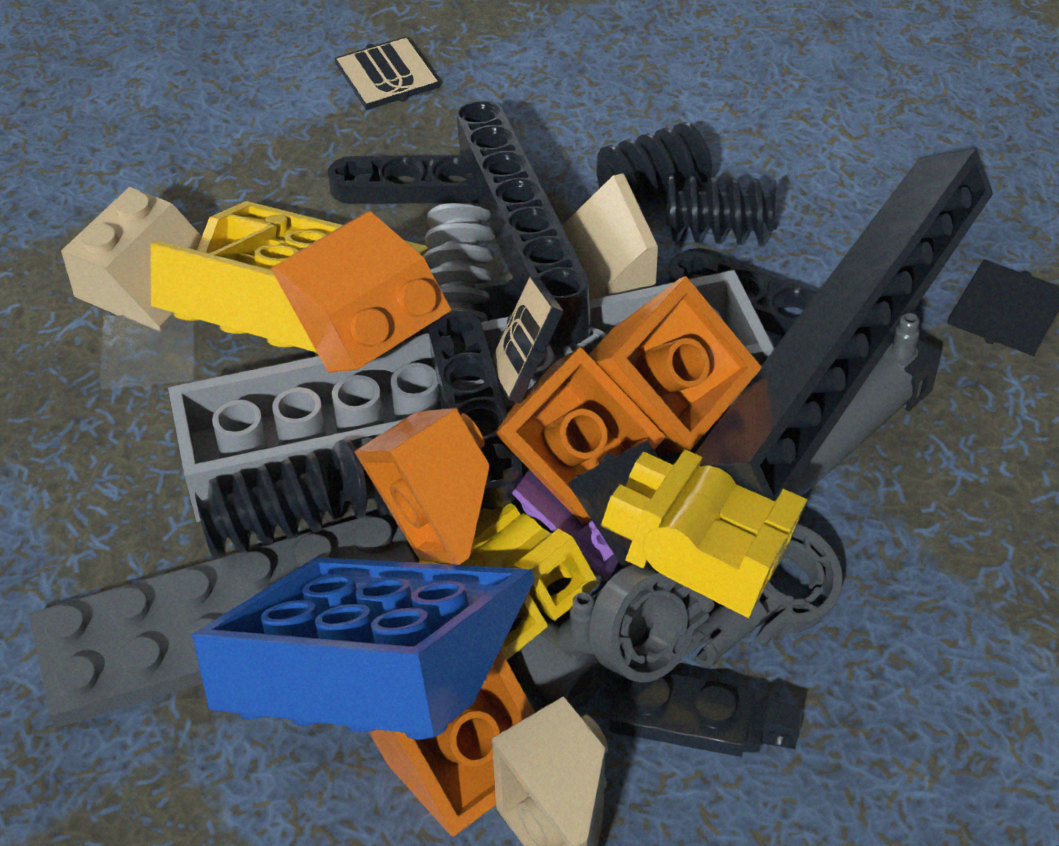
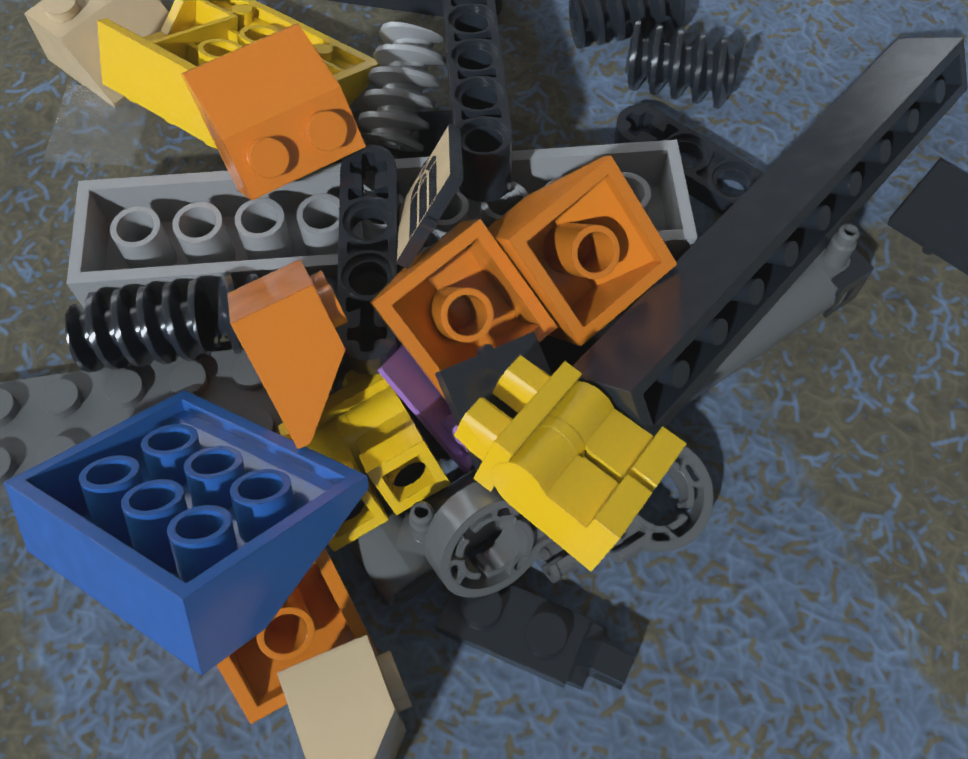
camera: 10 degrees right, 15 degrees up
(613, 241) = (555, 91): tan slope -> none

